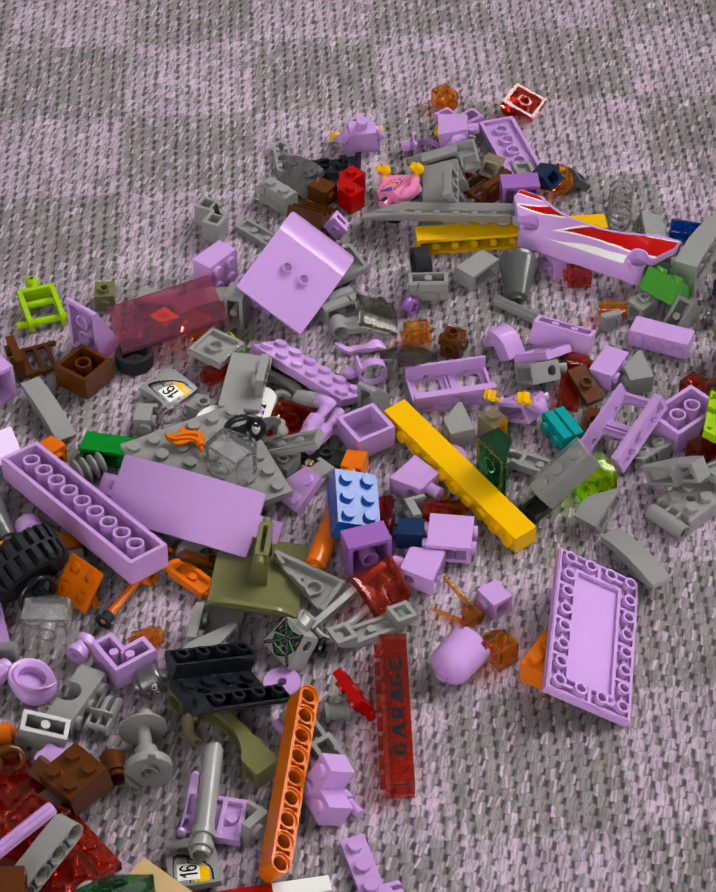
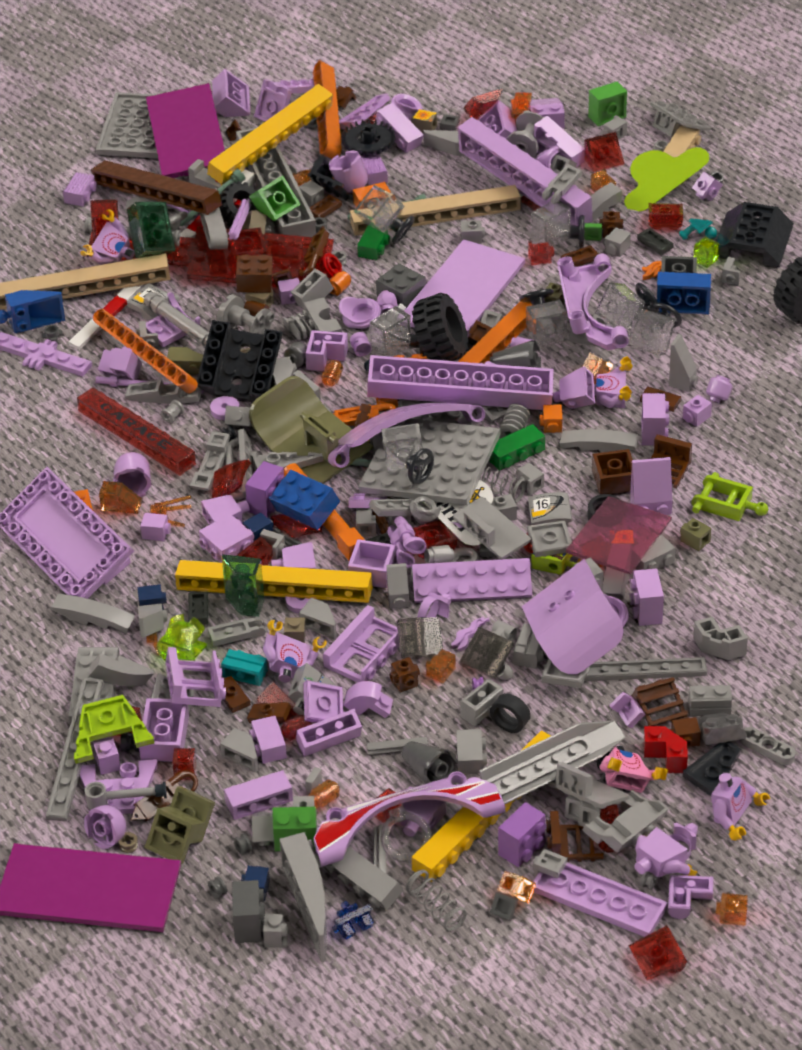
camera: 135 degrees right, 0 degrees up
(187, 436) = (461, 453): orange piece -> none
(356, 699) = (170, 412): red plate -> none
(491, 165) = (586, 853): dark tan brick -> none
(548, 176) = (517, 859): dark blue brick -> none
(564, 473) = (191, 601): light grey slope -> none
(572, 535) = (151, 595): none -> dark blue brick

